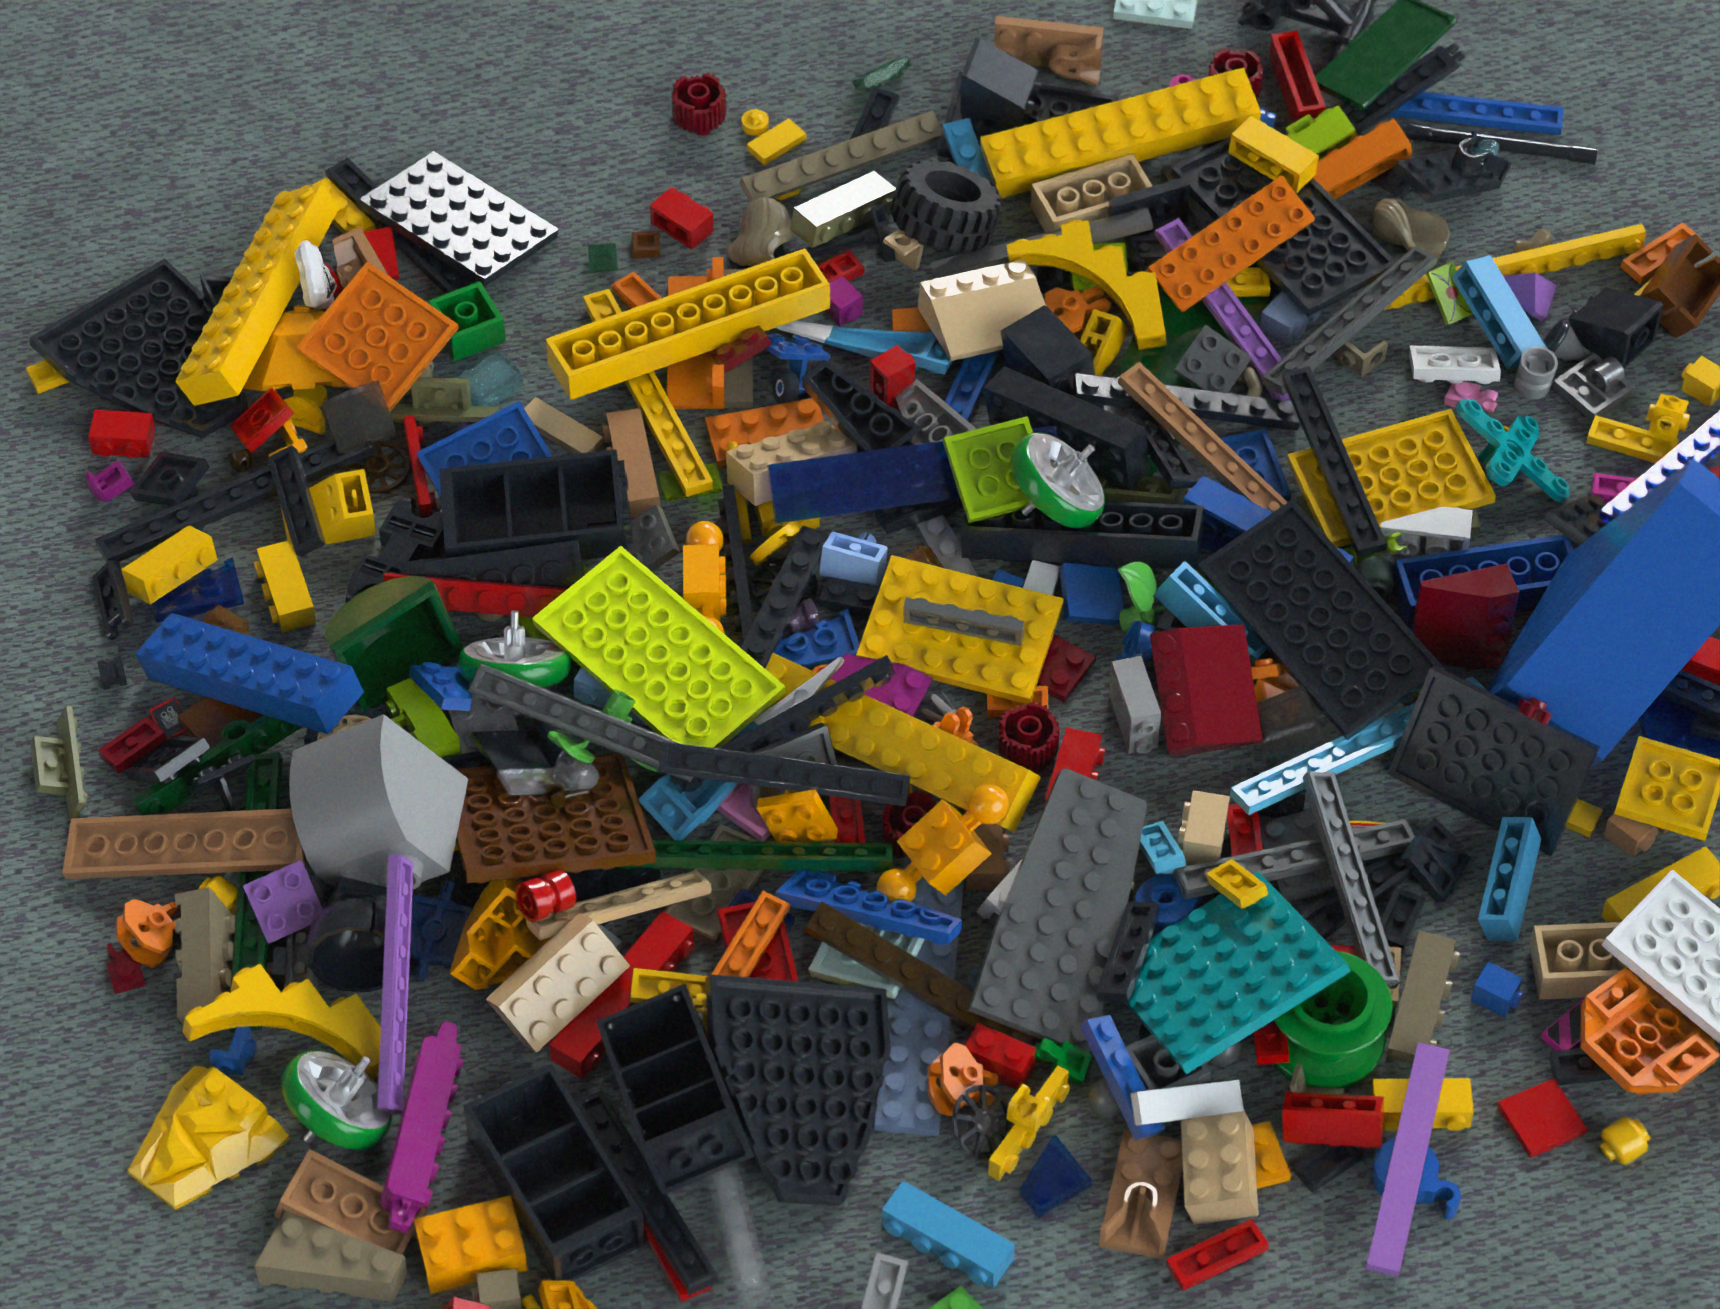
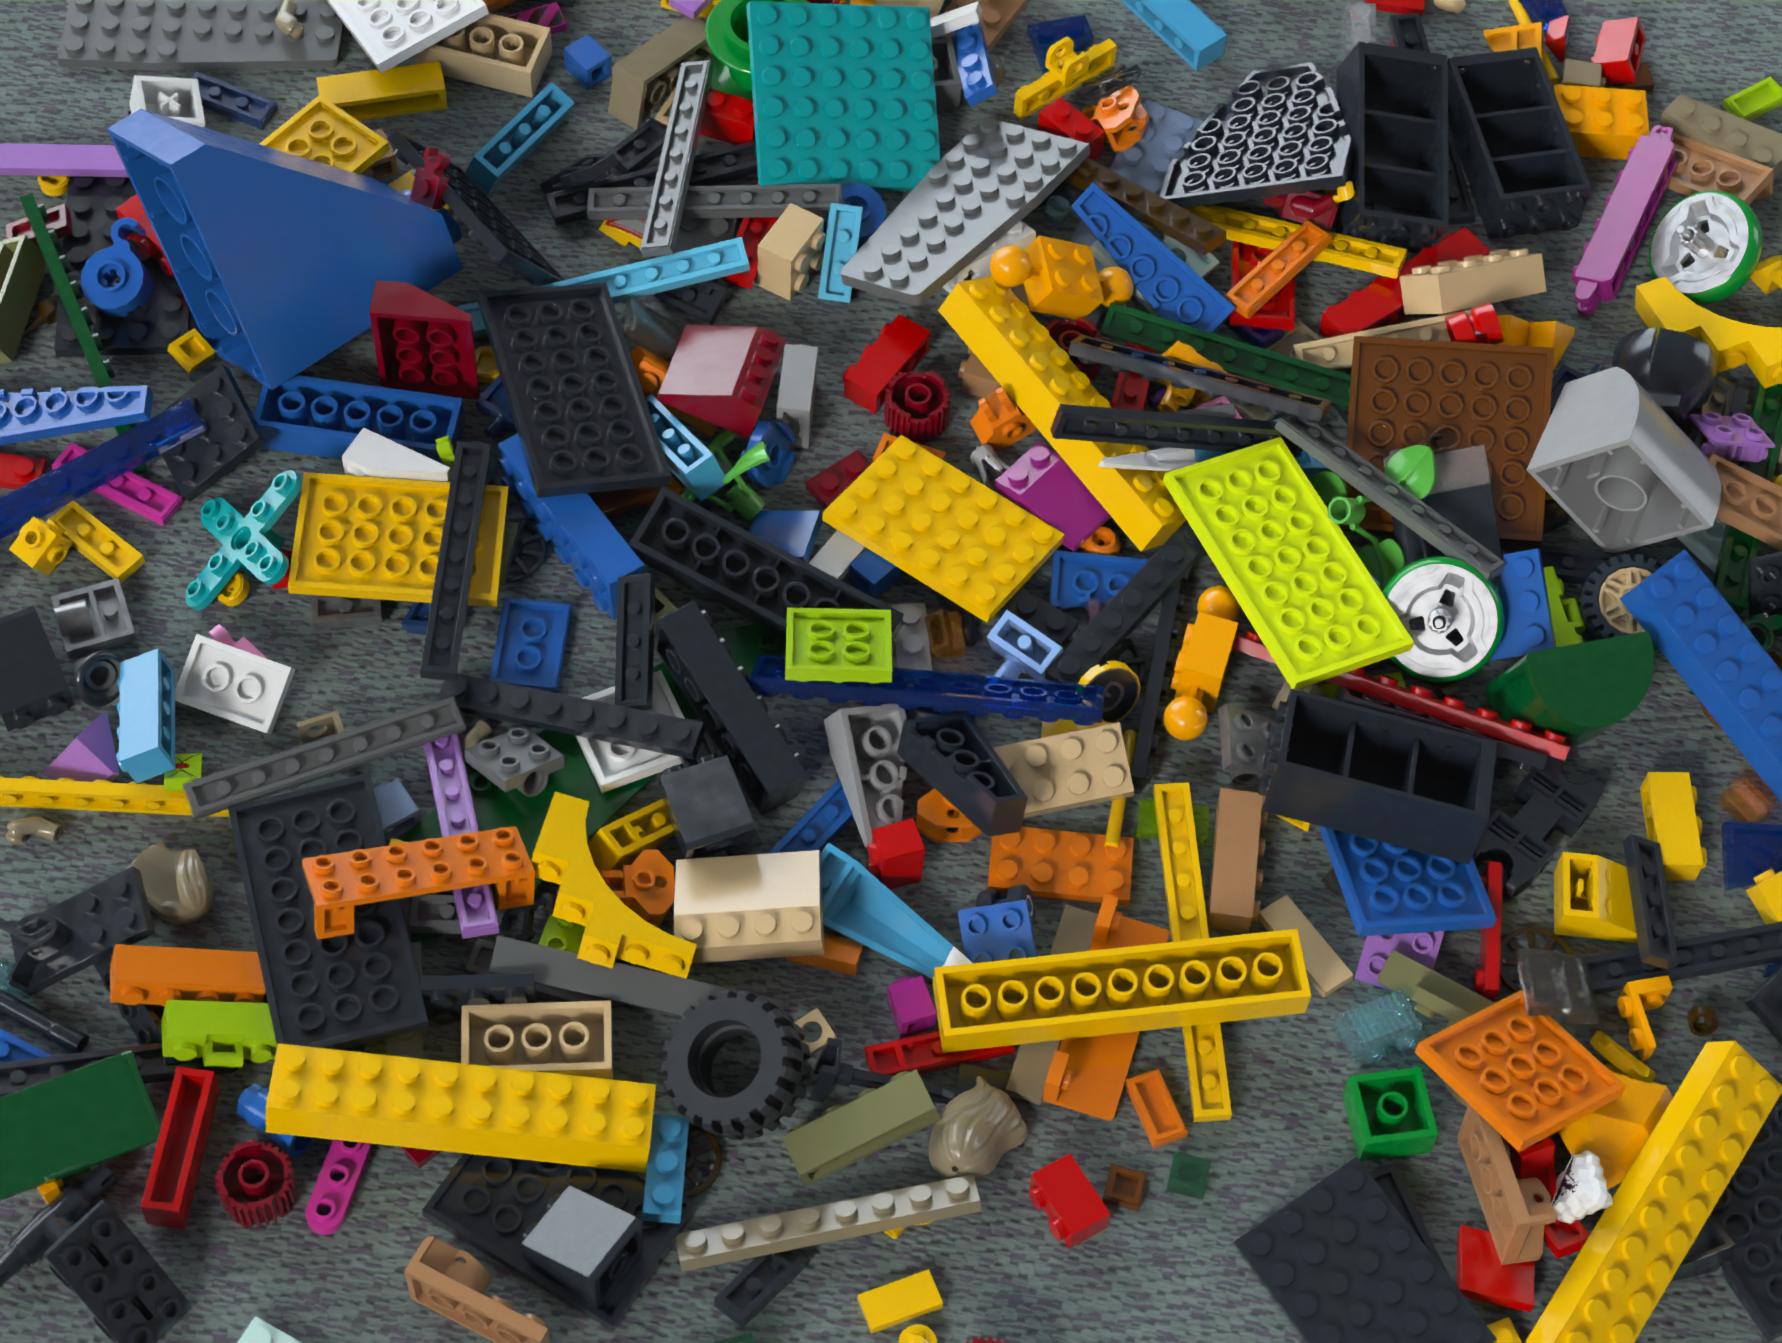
camera: 165 degrees left, 5 degrees up
(261, 420) = (1671, 1039): red tile -> none
(395, 984) = (1639, 295): medium lavender tile -> none
(741, 349) = (1052, 943): dark red plate -> none
(963, 621) = (946, 500): dark grey plate -> none
(1057, 480) = (773, 573): wheel -> none
(1066, 1056) = (1013, 113): green plate -> none
(1128, 952) = (918, 157): black plate -> none
(1198, 438) = (582, 630): medium nougat plate -> none
(1237, 884) = (795, 156): yellow plate -> none
(1273, 153) = (294, 982): yellow brick -> none
(1535, 372) = (149, 631): light grey wheel -> none

